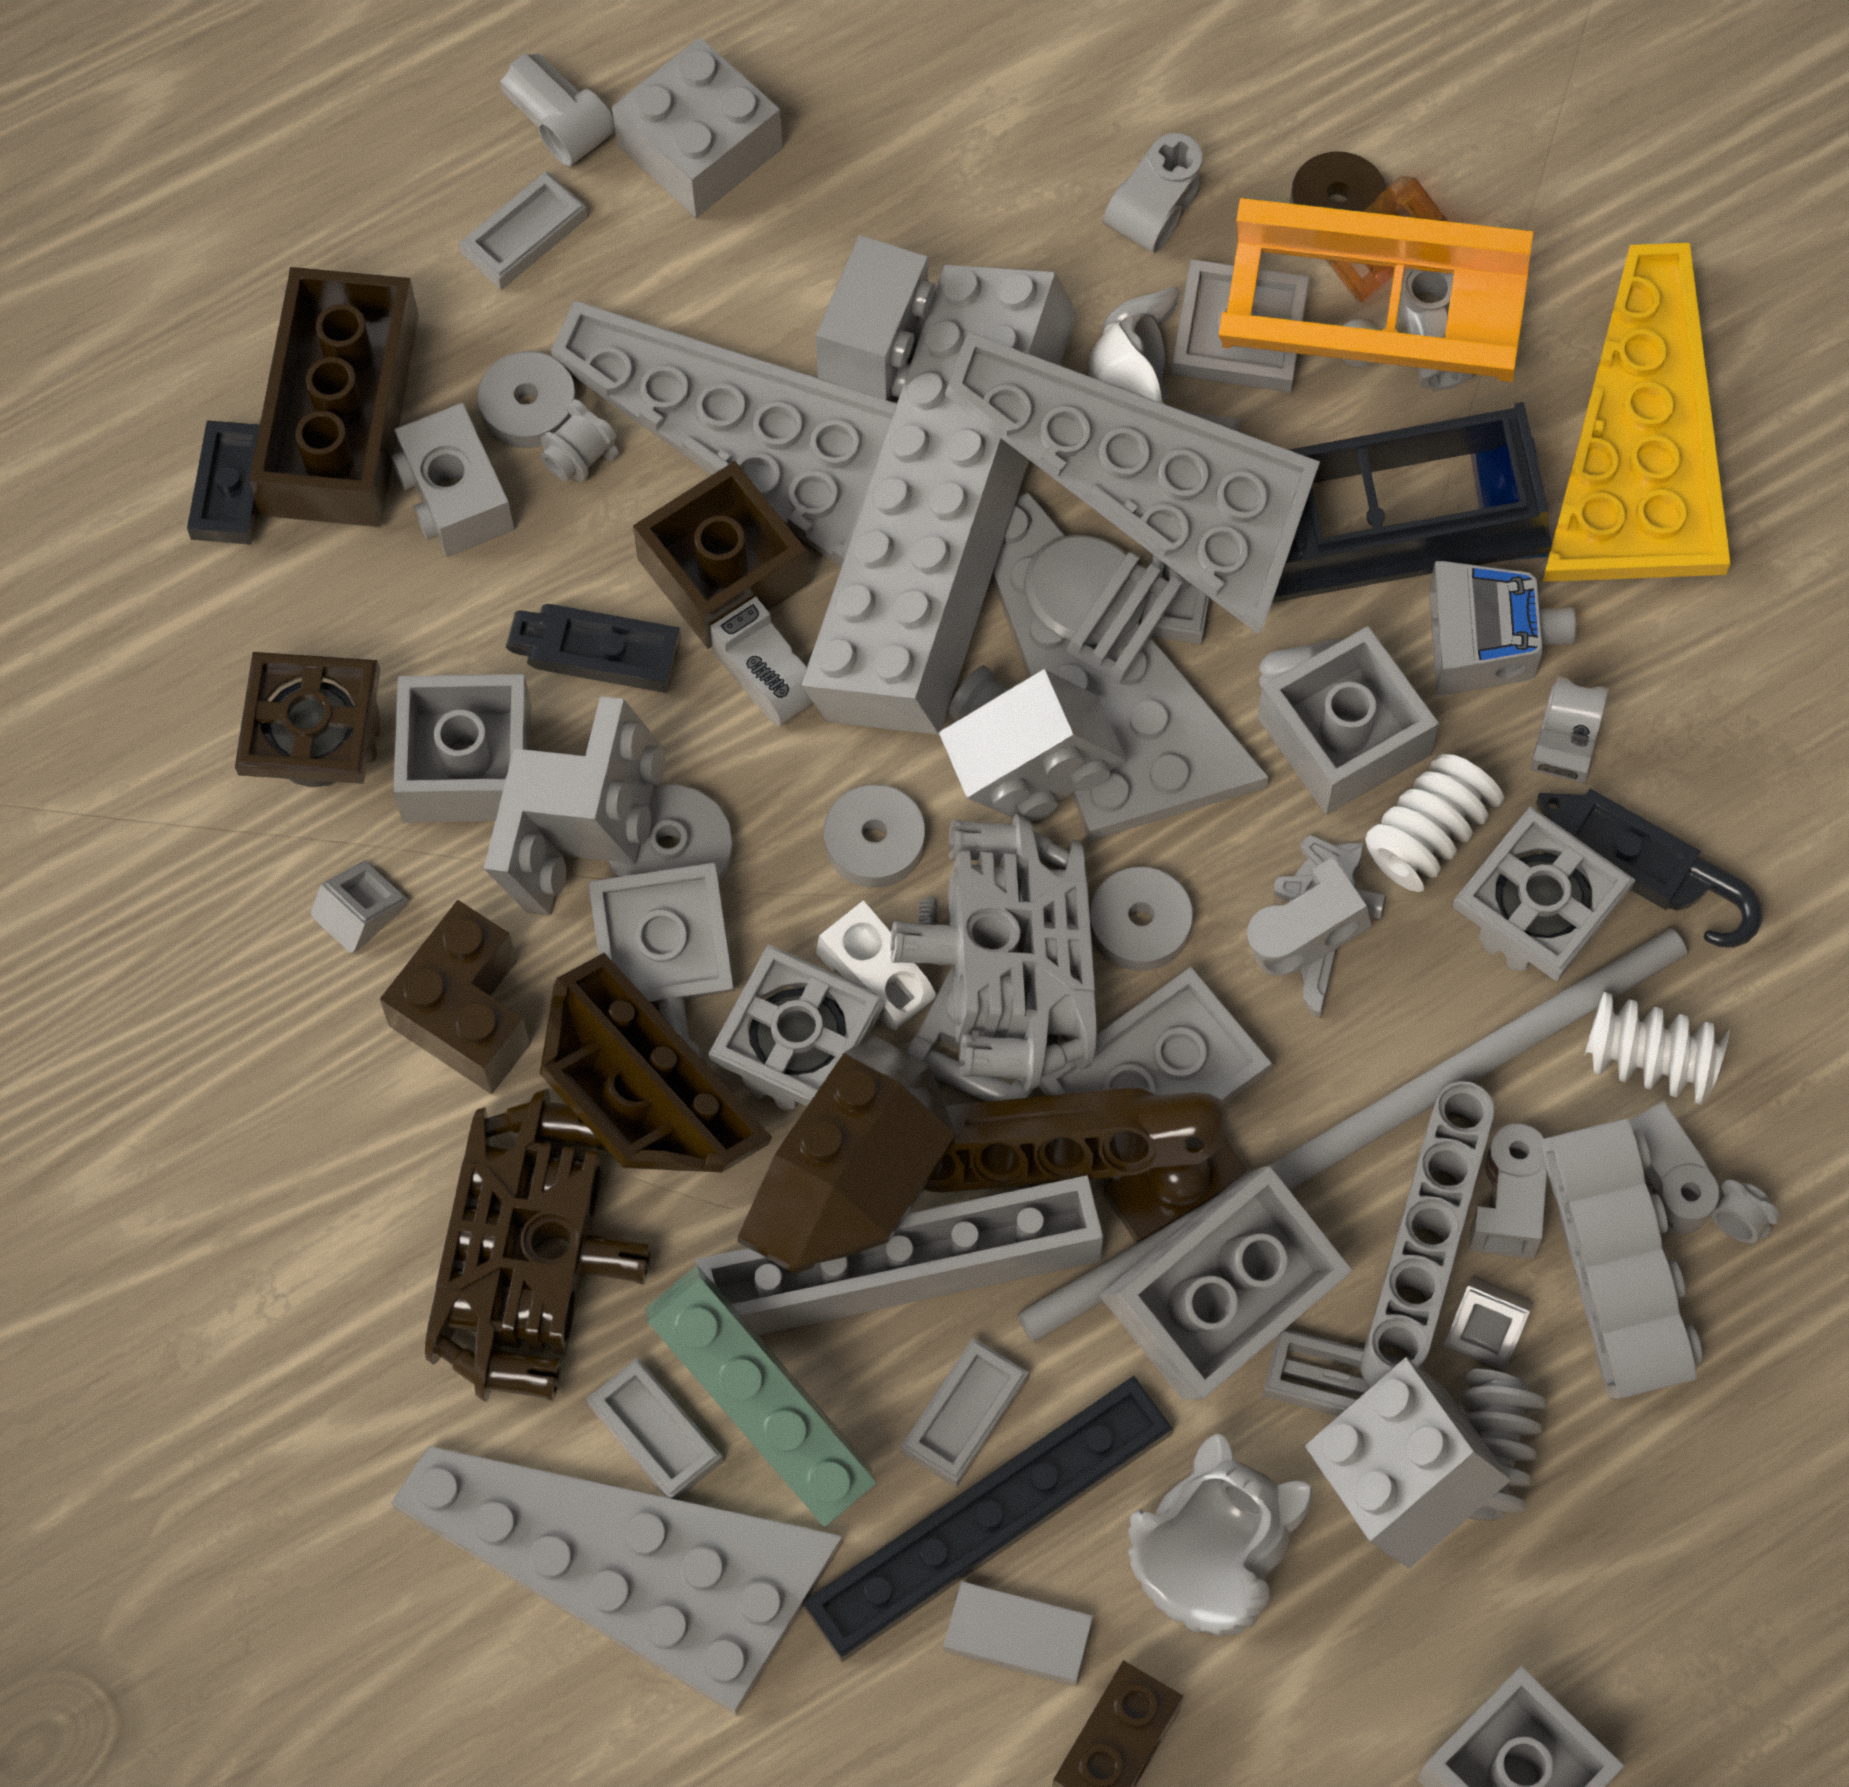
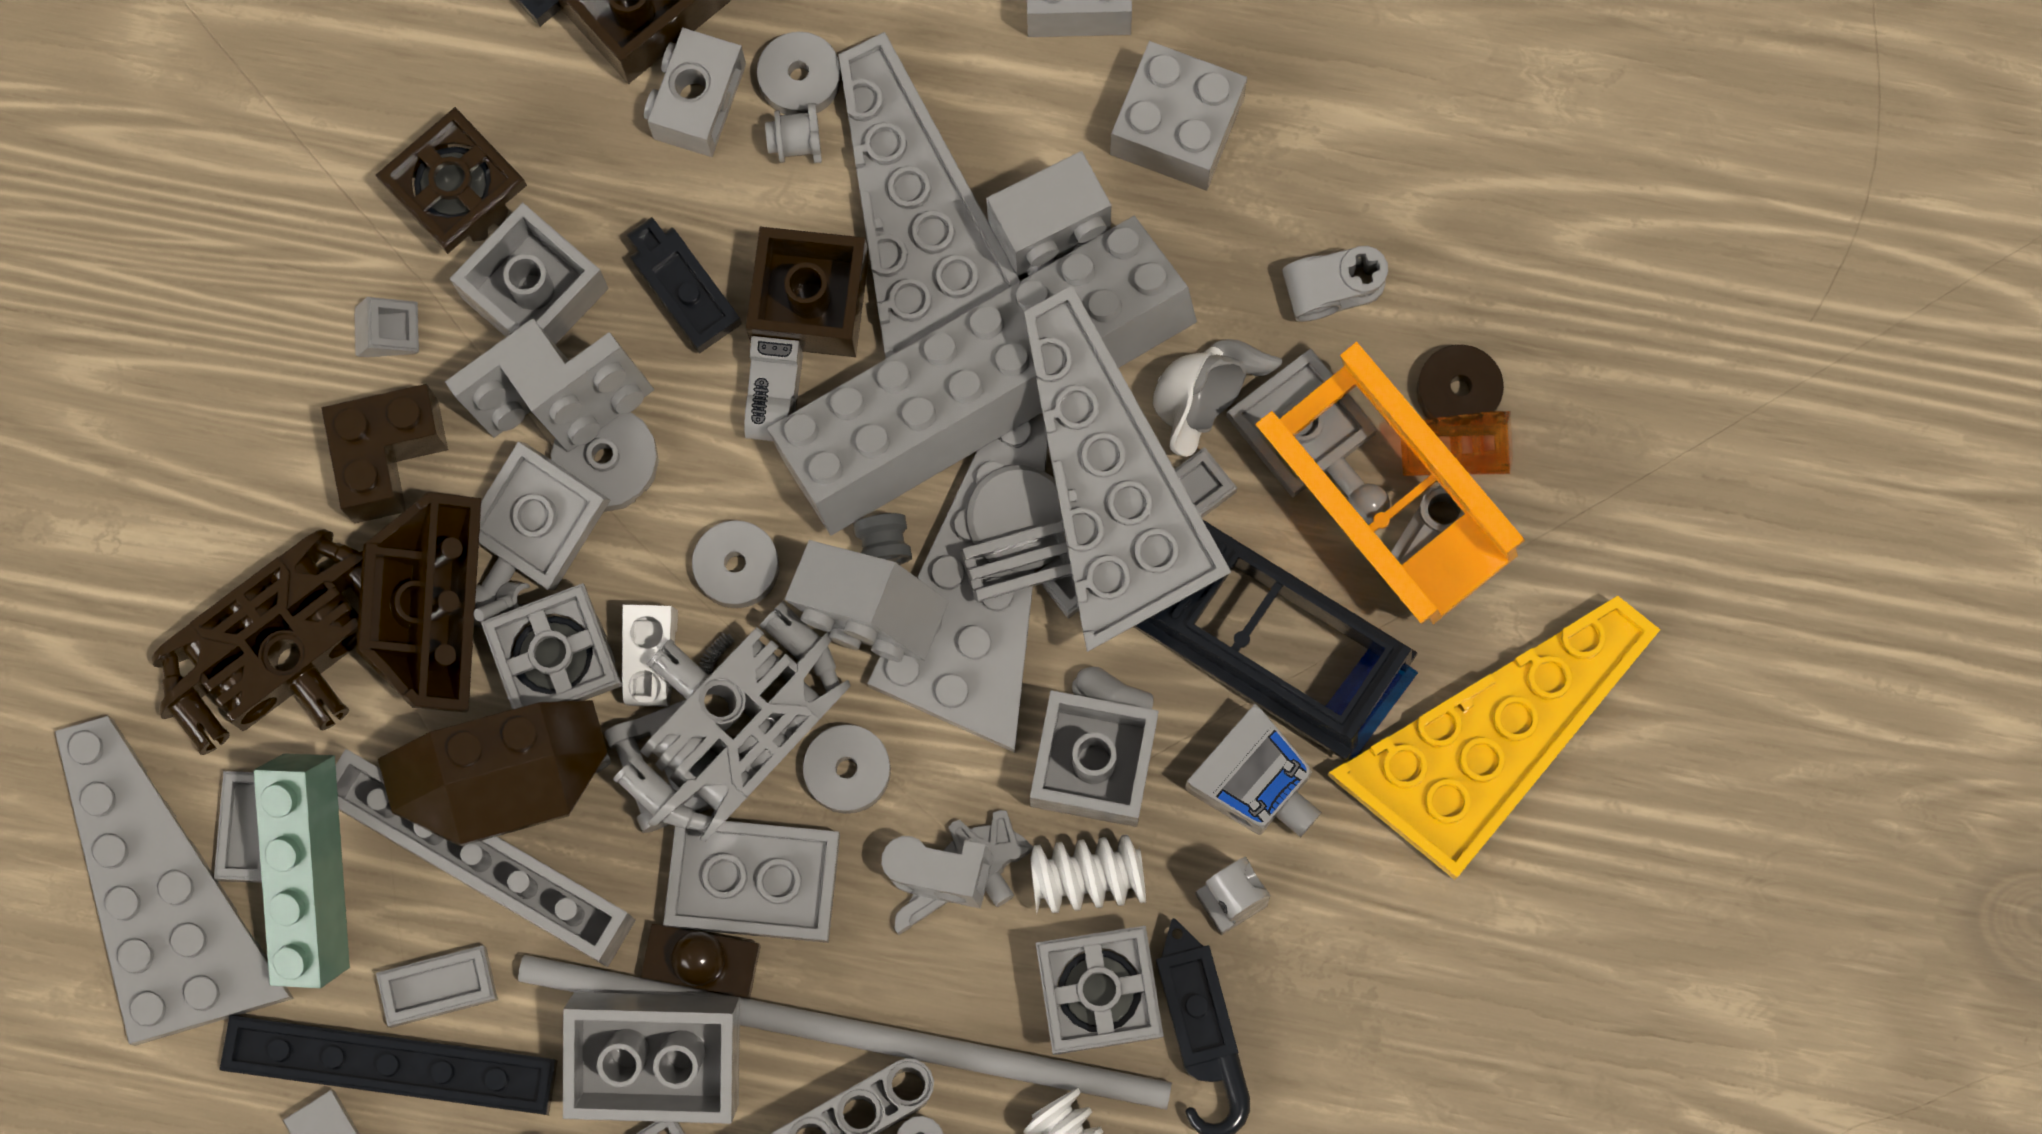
camera: 45 degrees right, 10 degrees up
(703, 1028) = (505, 601): none -> light grey hand
(896, 167) = (1178, 115): none -> light grey brick
(1077, 1137) = (649, 881): dark brown piece -> none

